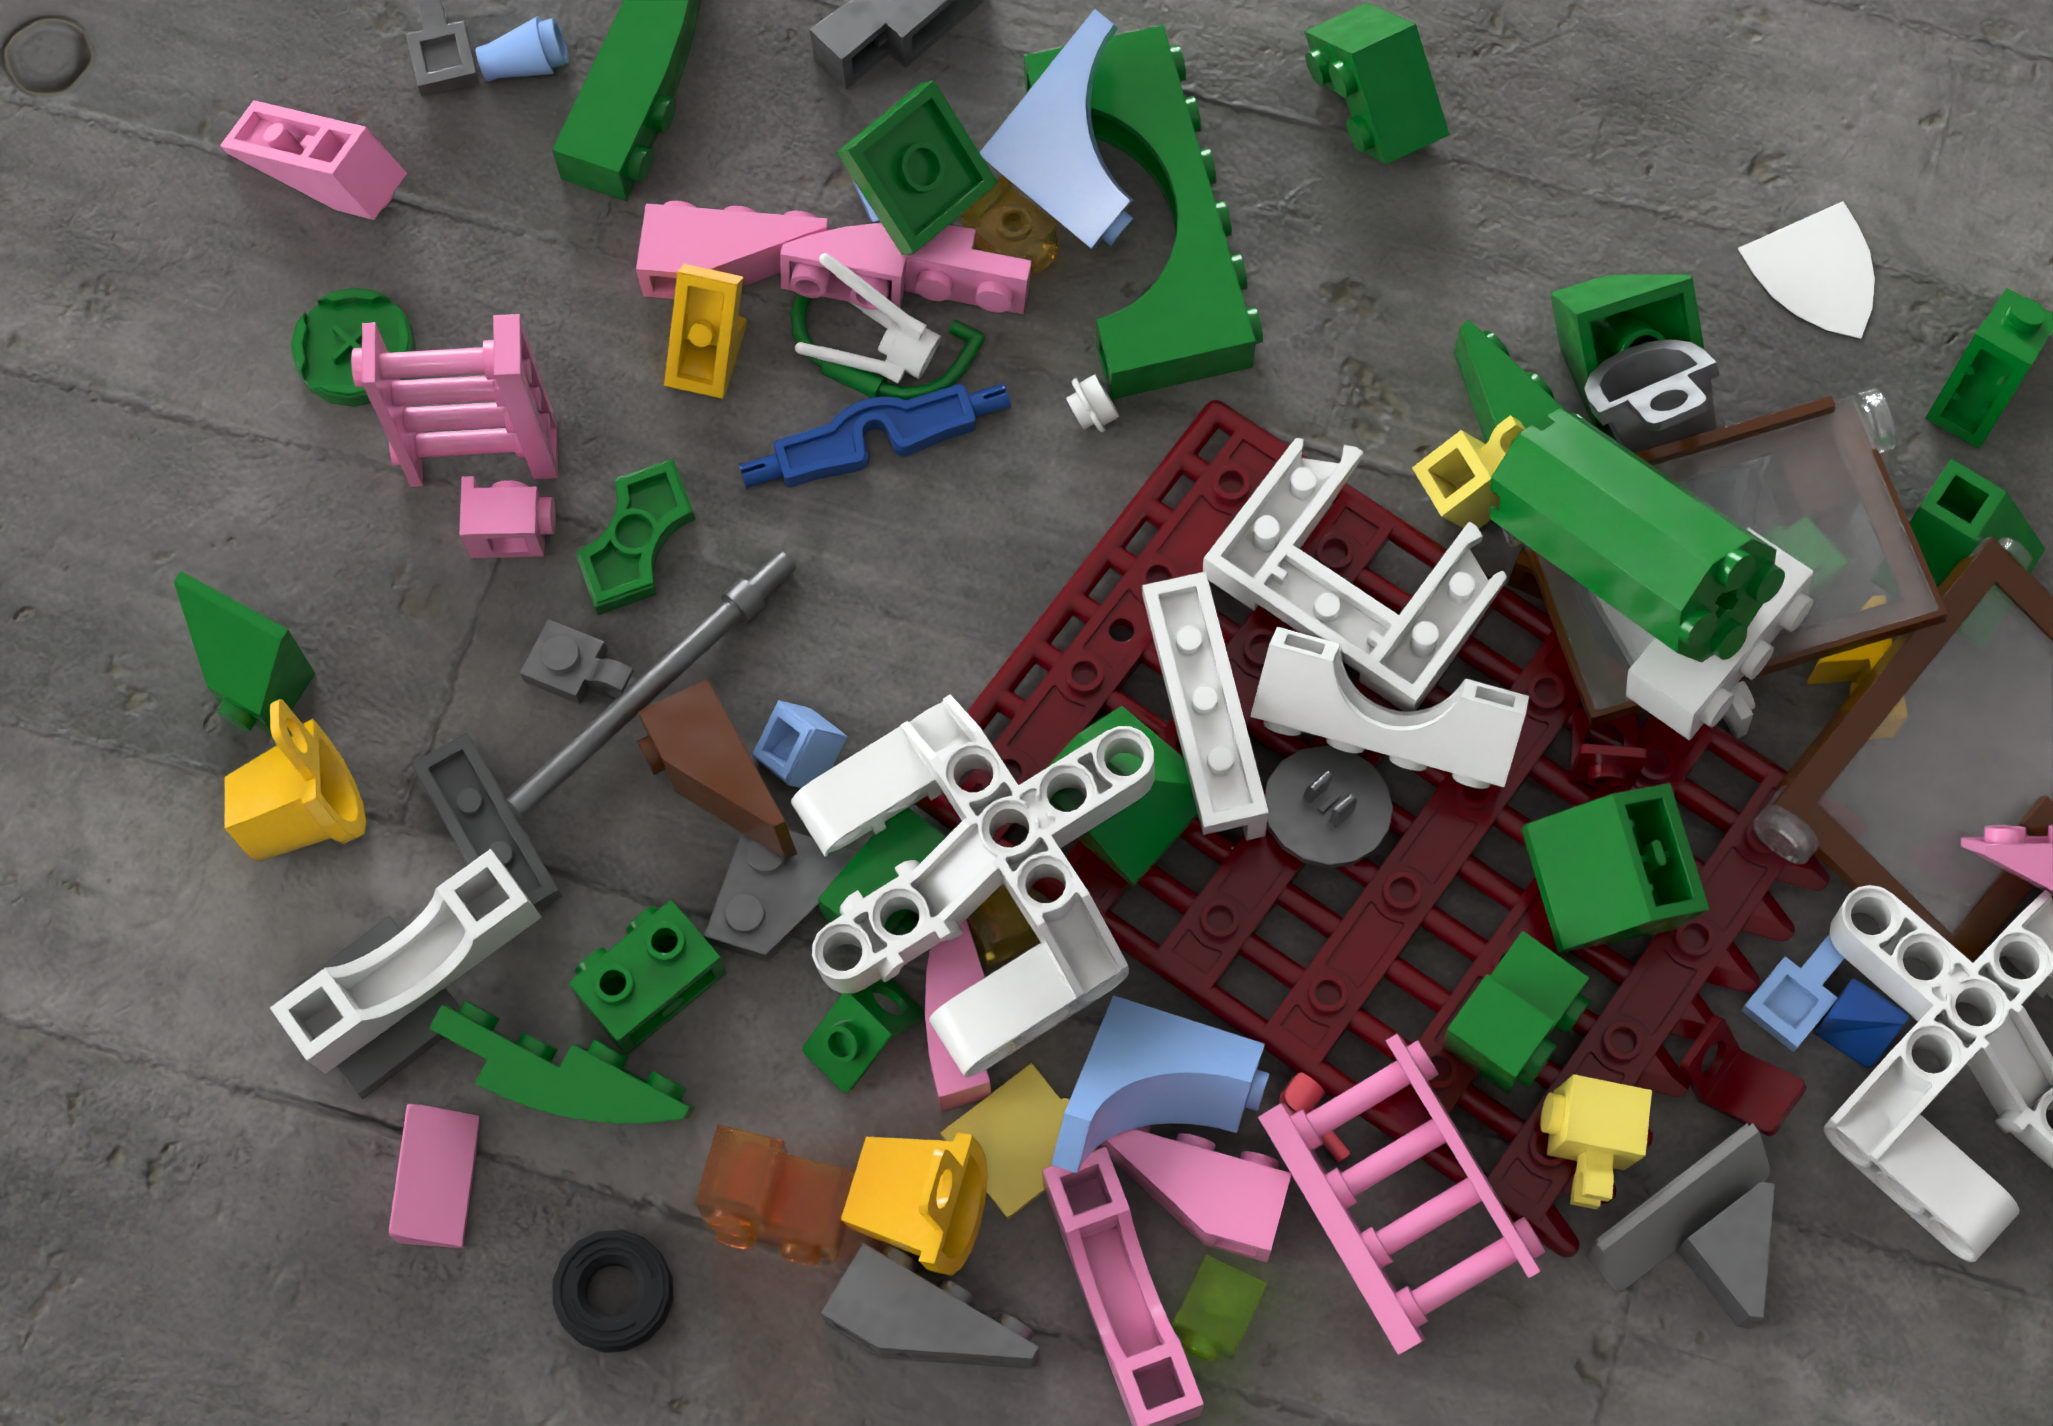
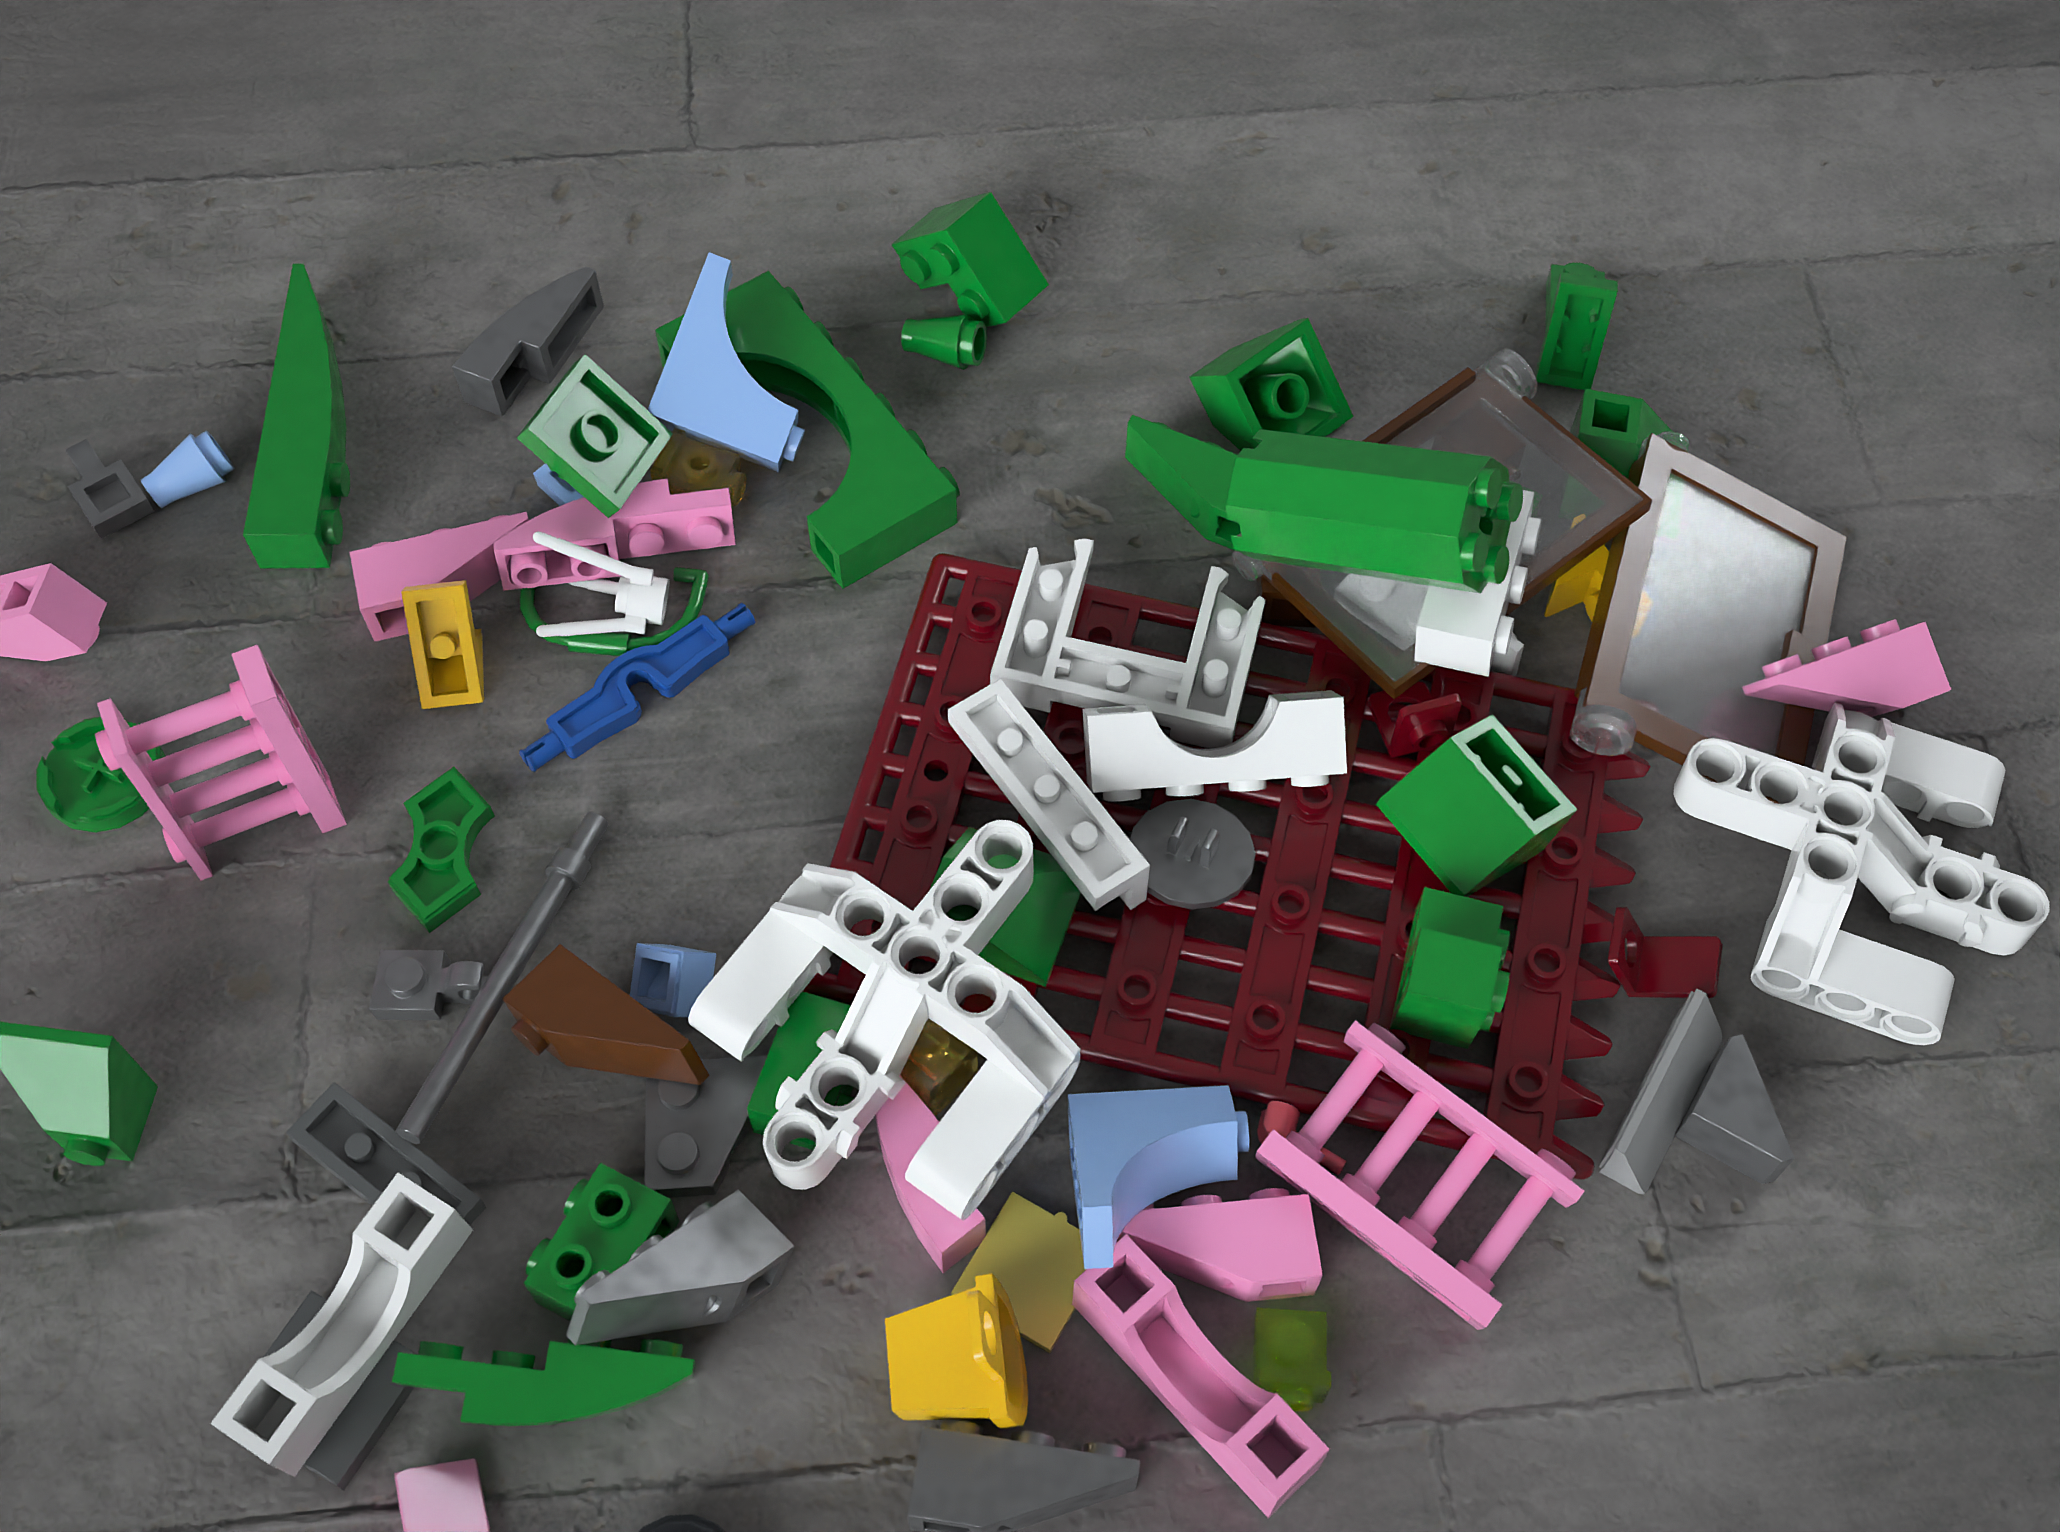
camera: 25 degrees left, 10 degrees down
(292, 792) = (168, 1203): yellow container -> none
(504, 519) = (306, 874): bright pink brick -> none
(716, 1034) = (692, 1278): none -> flat silver slope
(770, 1197) = (812, 1417): clear orange brick -> none
(858, 1032) = (834, 1225): green bracket -> none
(1092, 403) = (829, 593): white plate -> none
(1322, 160) = (948, 339): none -> green cone
(1461, 472) = (1192, 537): light yellow brick -> none
(1600, 1128) = (1569, 1042): light yellow brick -> none
(1654, 393) = (1324, 405): flat silver container -> none
(1794, 997) = (1668, 872): light blue plate -> none
(1818, 270) = (1394, 301): white sticker -> none
(1861, 1023) = (1736, 872): blue slope -> none

